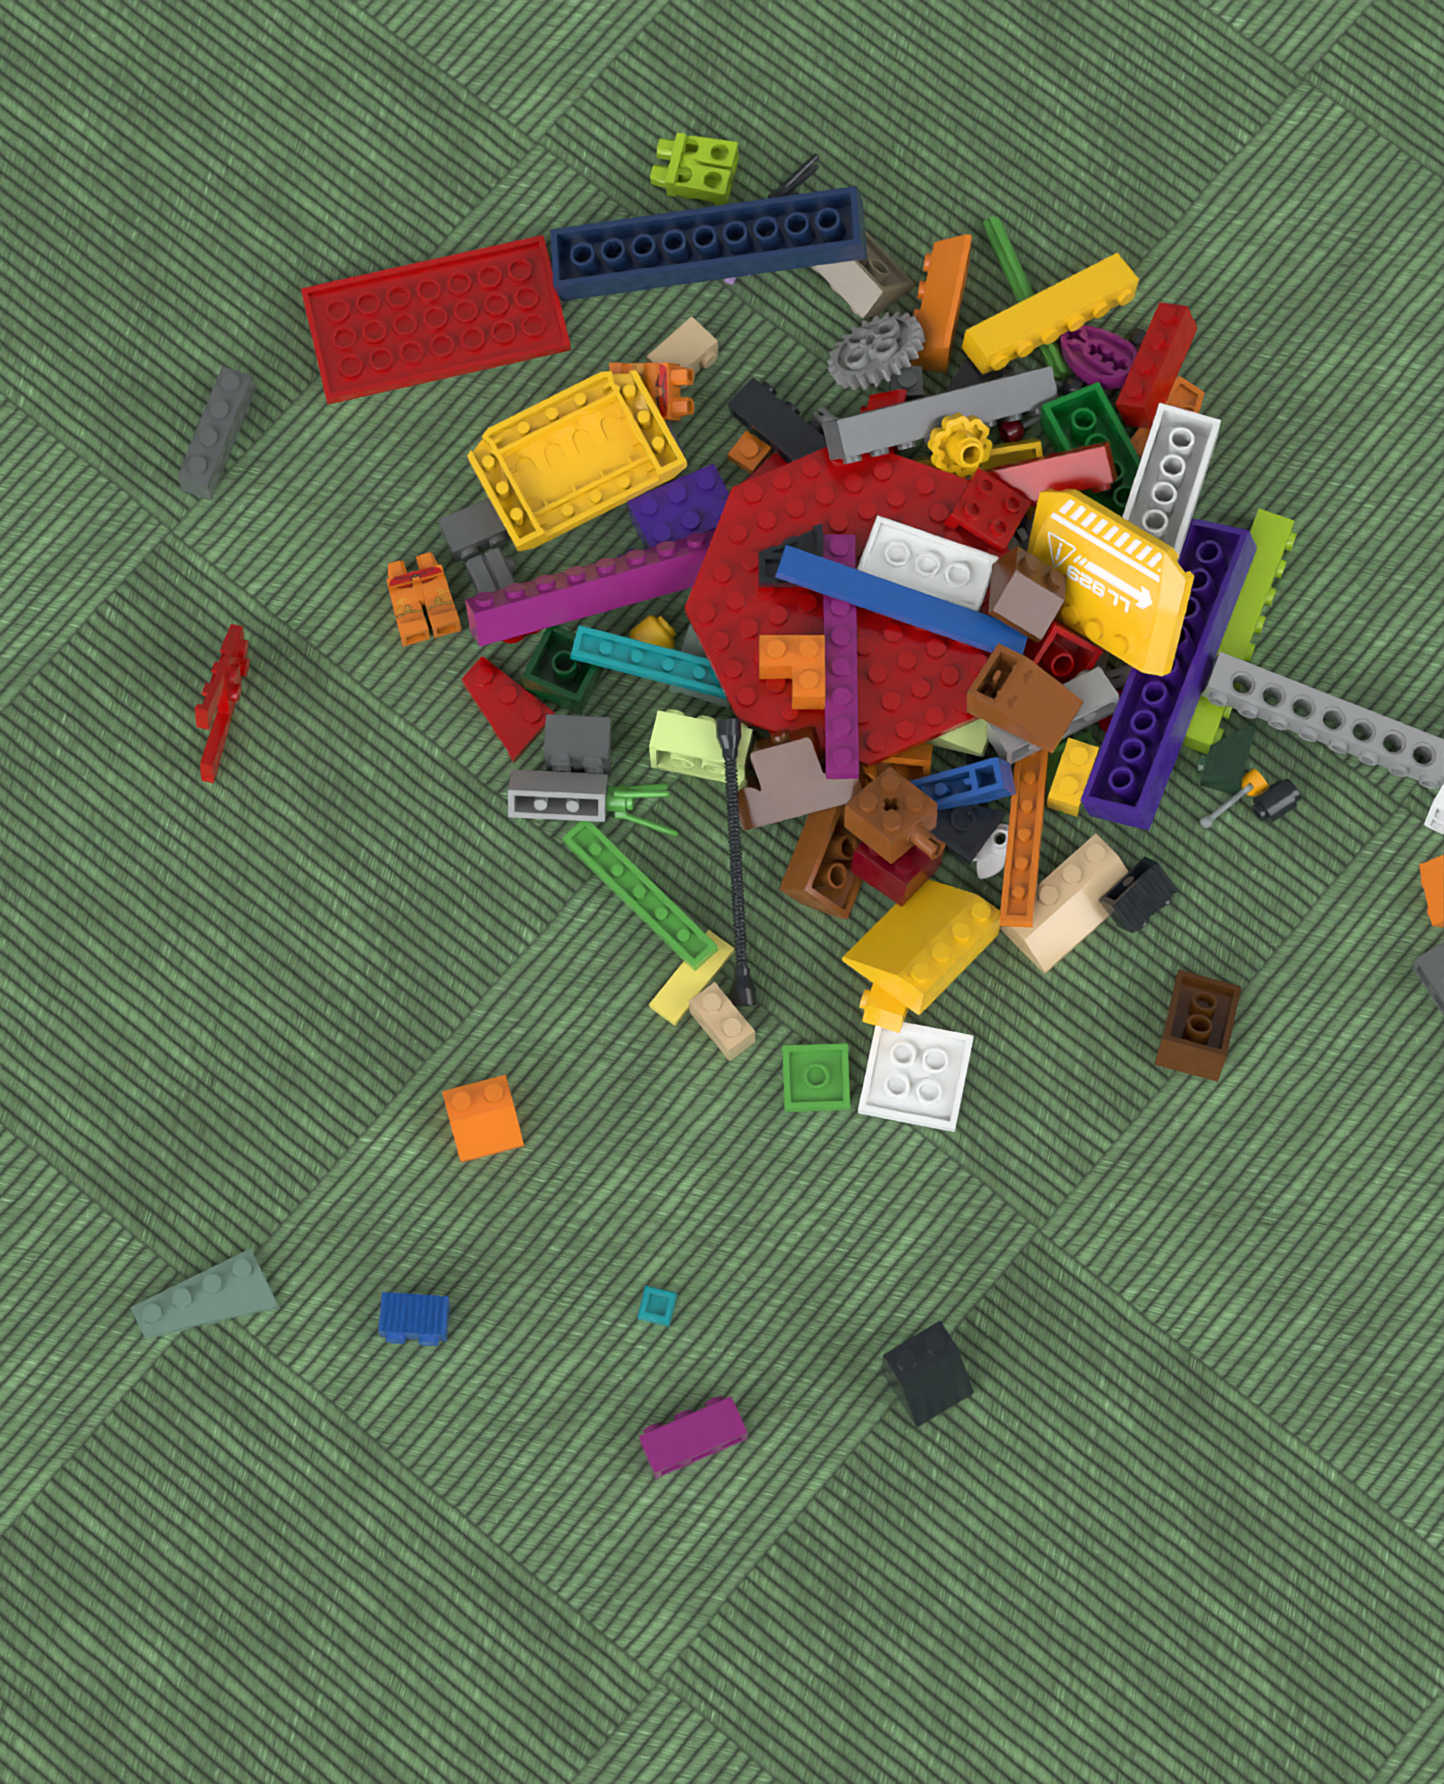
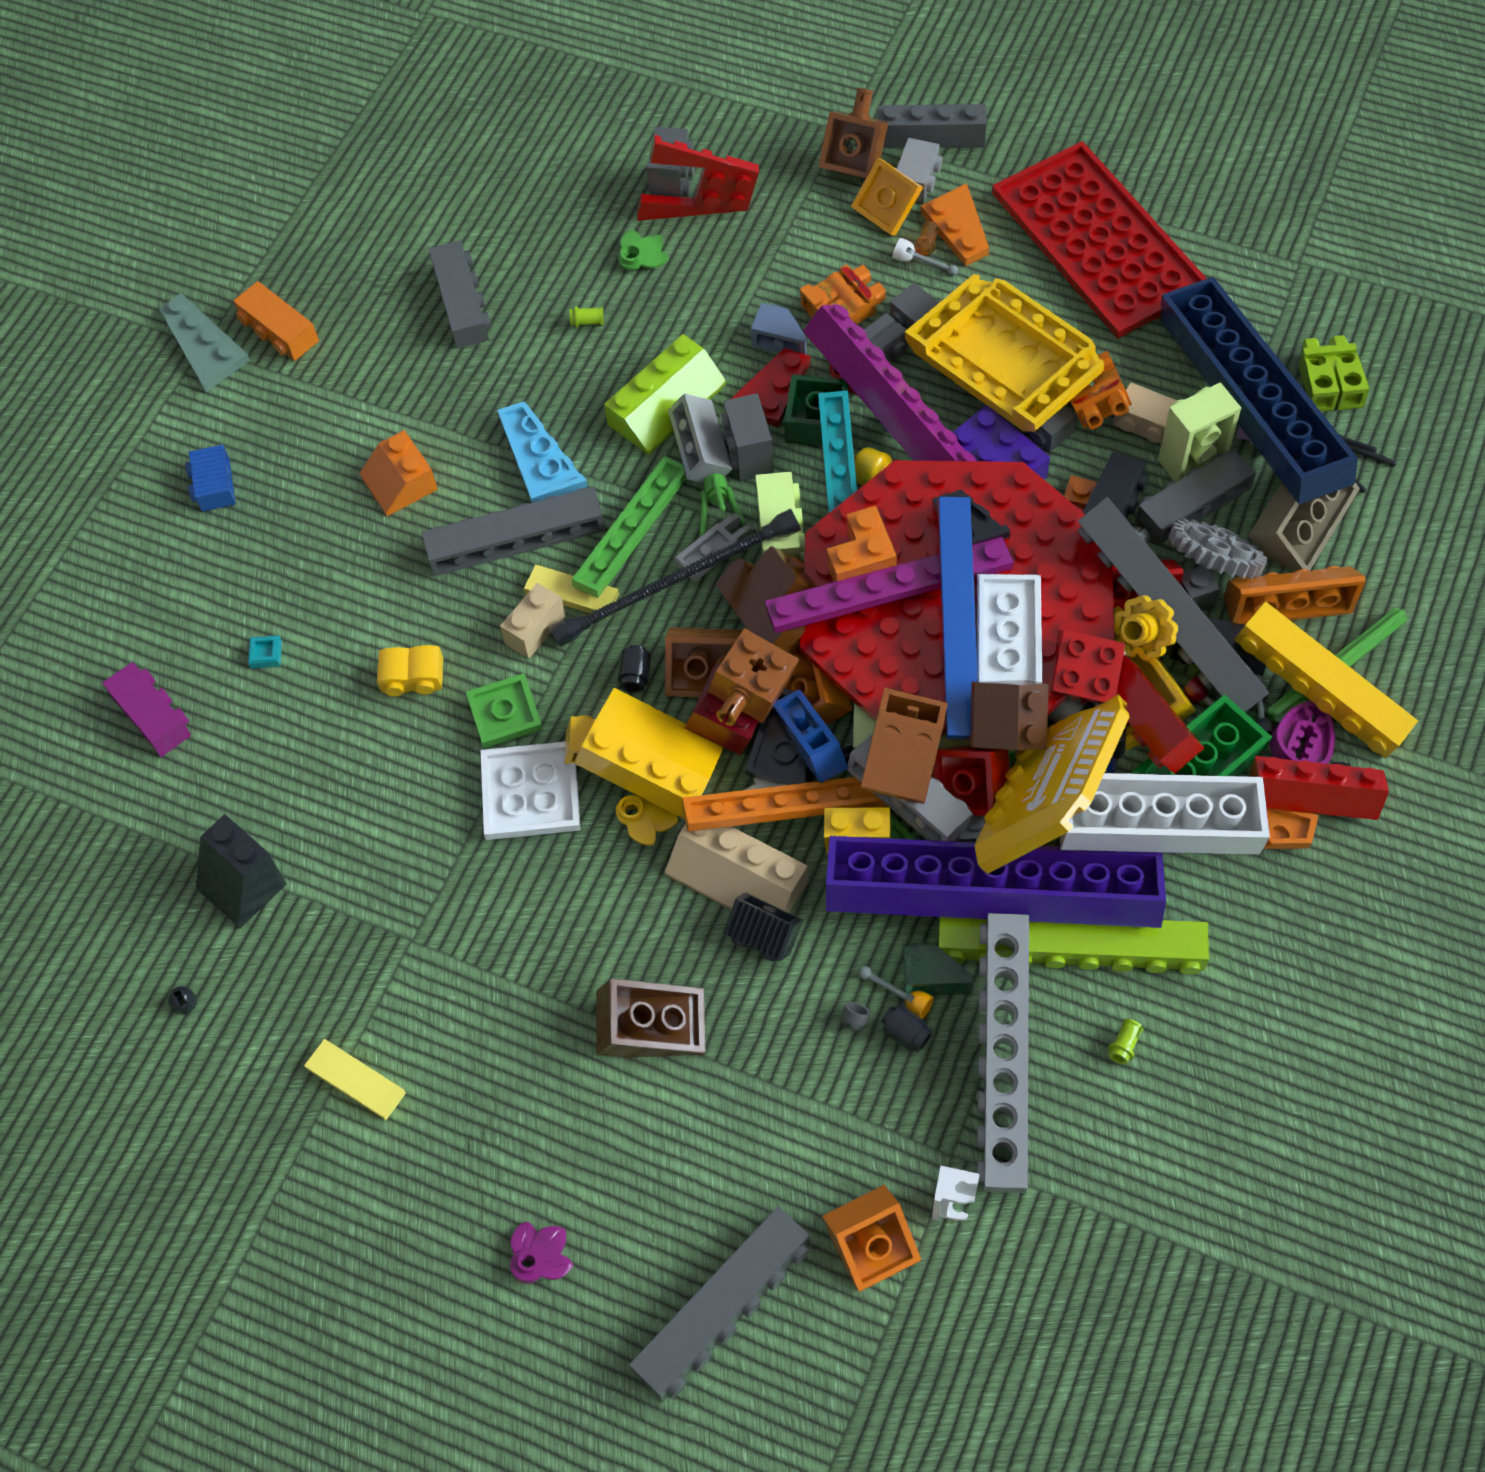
camera: 75 degrees right, 10 degrees down
(170, 721) = (670, 179): none -> dark grey brick
(218, 1207) = (275, 321): none -> orange brick
(220, 517) = (857, 126): none -> dark orange brick
(256, 996) = (459, 294): none -> dark grey brick
(266, 785) = (641, 252): none -> bright green plate
(271, 468) = (919, 163): none -> light grey brick
(304, 510) = (886, 197): none -> light orange plate
(338, 870) = (586, 316): none -> lime pin
(357, 452) = (958, 224): none -> orange wing
(375, 493) = (925, 243): none -> clear orange pin
(377, 517) = (905, 252): none -> hinge
(438, 677) = (777, 329): none -> sand blue slope
(479, 816) = (643, 404): none -> lime slope
(521, 966) = (538, 456): none -> medium azure wing
(601, 1015) = (513, 531): none -> dark grey brick
(692, 825) = (711, 542): none -> light grey hinge
(737, 1159) = (410, 670): none -> yellow brick
(741, 316) = (1198, 430): none -> yellowish green brick
(796, 348) = (1196, 494): none -> dark grey brick
(811, 938) = (634, 668): none -> black brick
(984, 974) = (647, 820): none -> yellow plate
(1038, 1468) = (189, 996): none -> black hinge
(1171, 1311) = (355, 1079): none -> light yellow tile
(1248, 842) = (855, 1015): none -> dark grey hinge
(1343, 621) = (1122, 1048): none -> lime pin
(1388, 1178) = (542, 1249): none -> magenta plate

